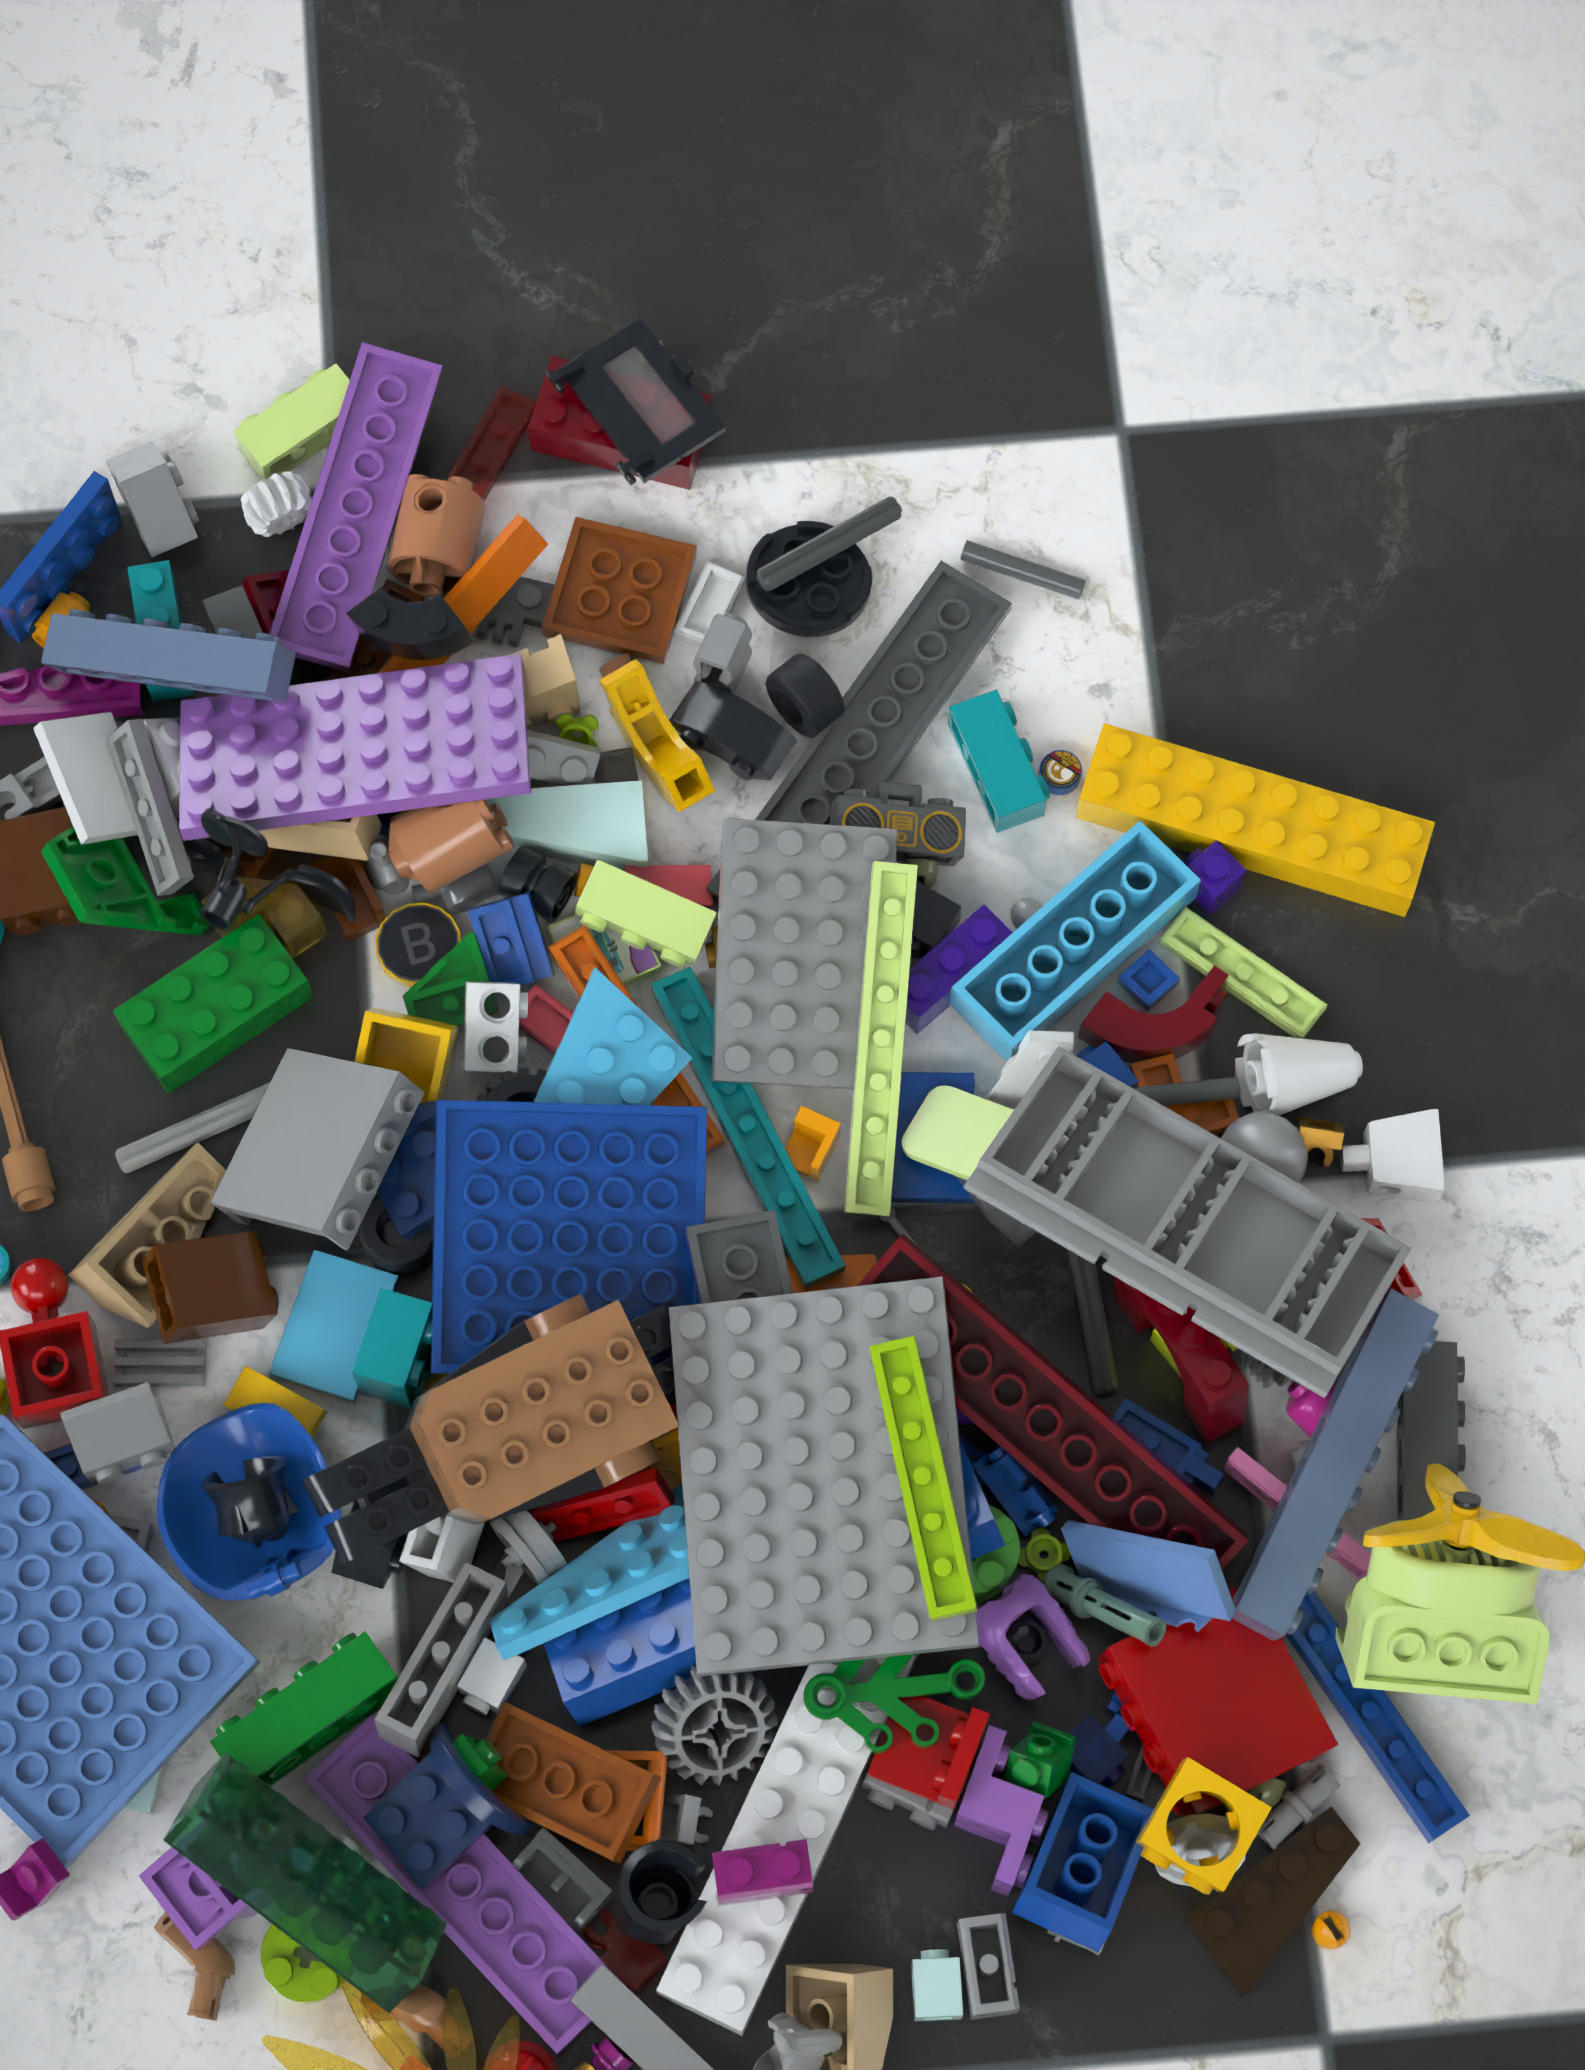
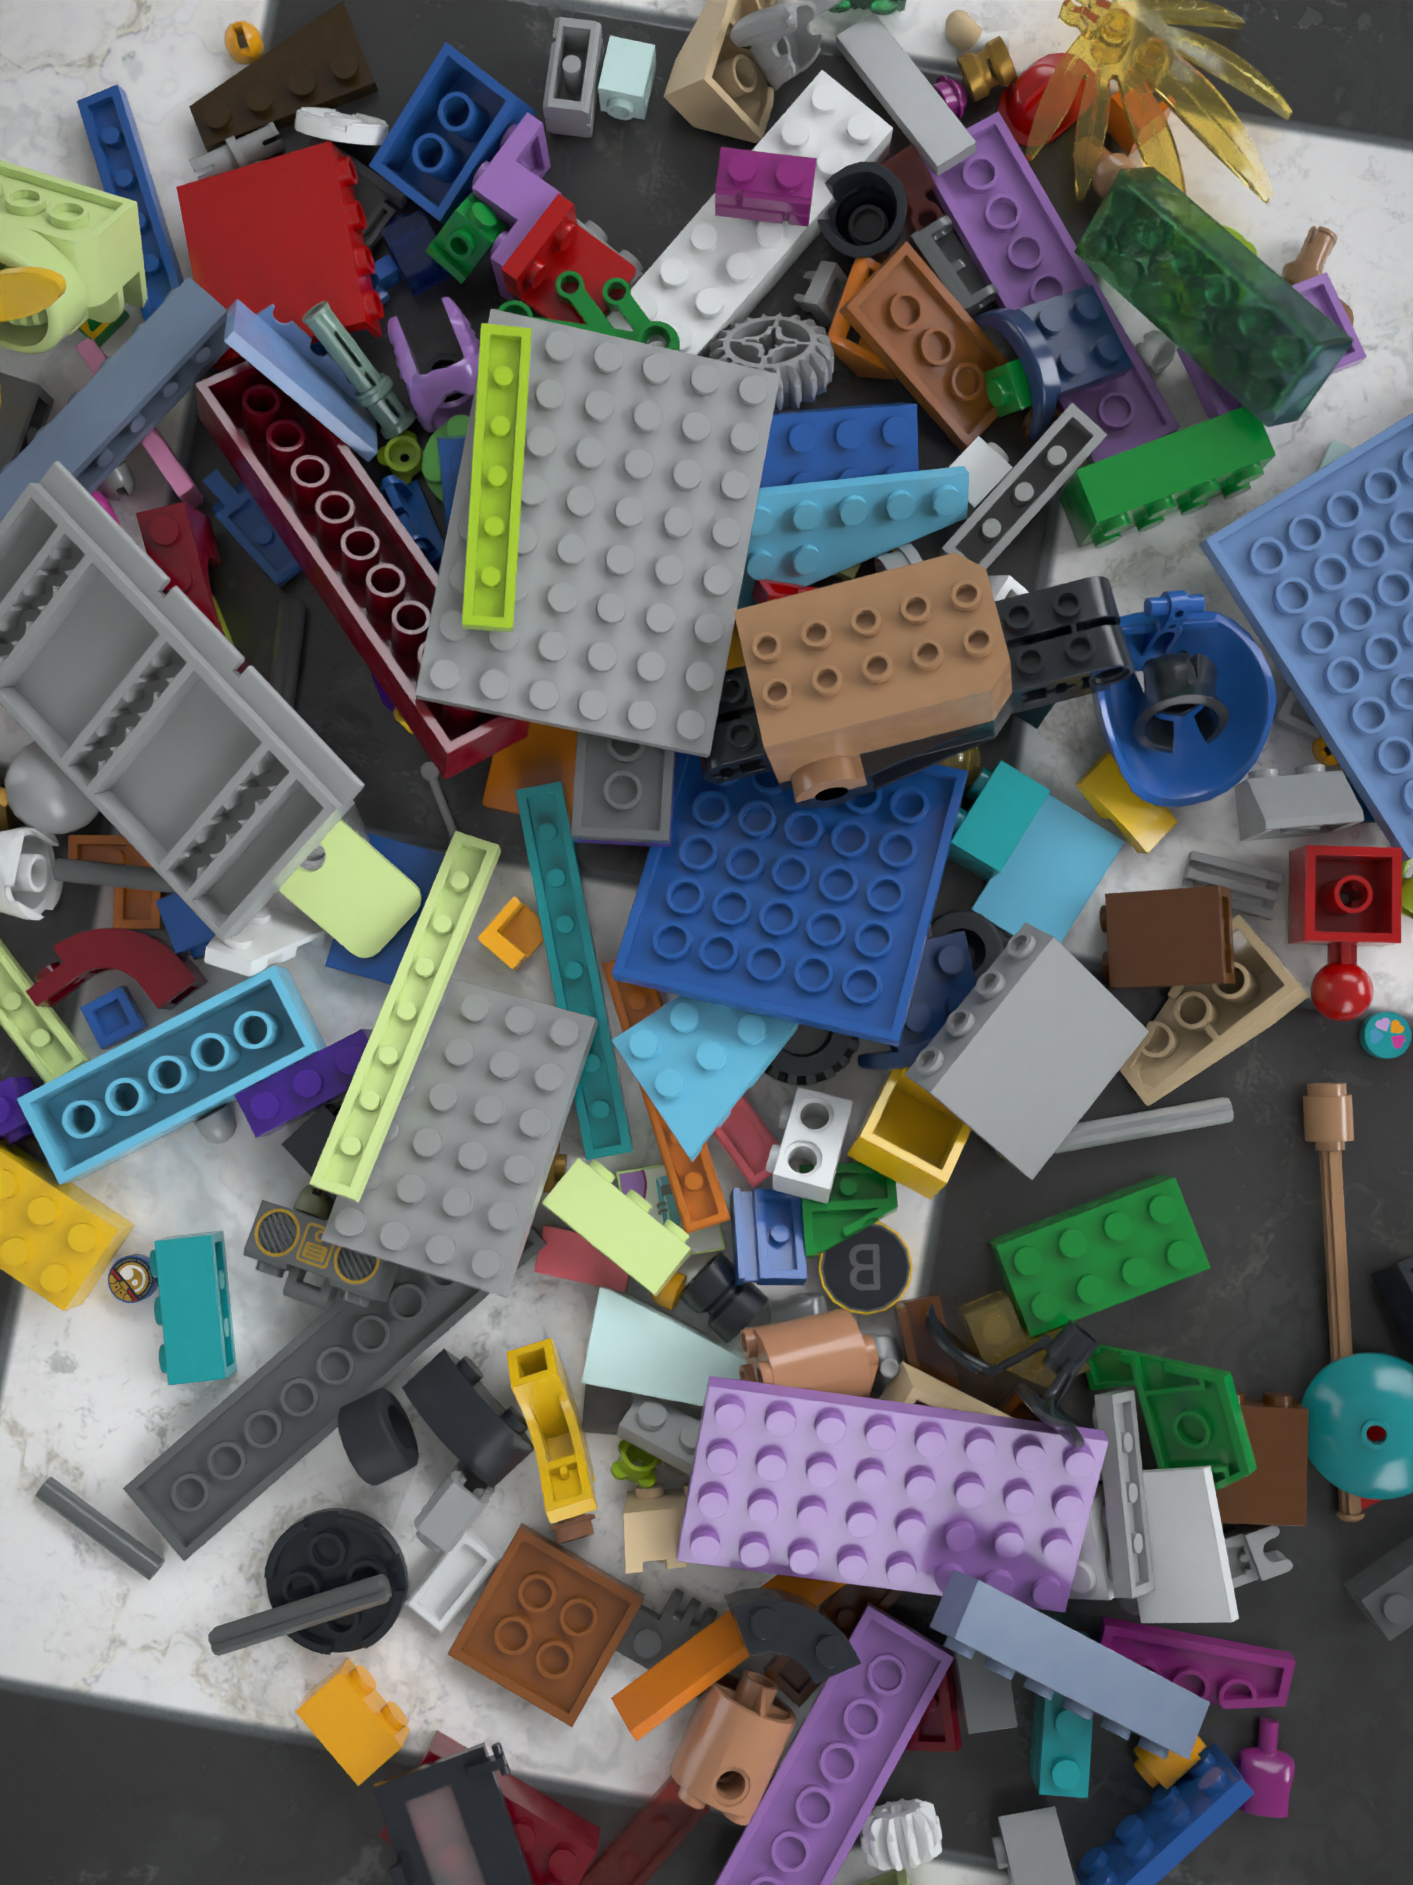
camera: 160 degrees left, 15 degrees up
(760, 477) = (354, 1720): none -> light orange brick
(1244, 1817) = (318, 64): yellow brick -> none

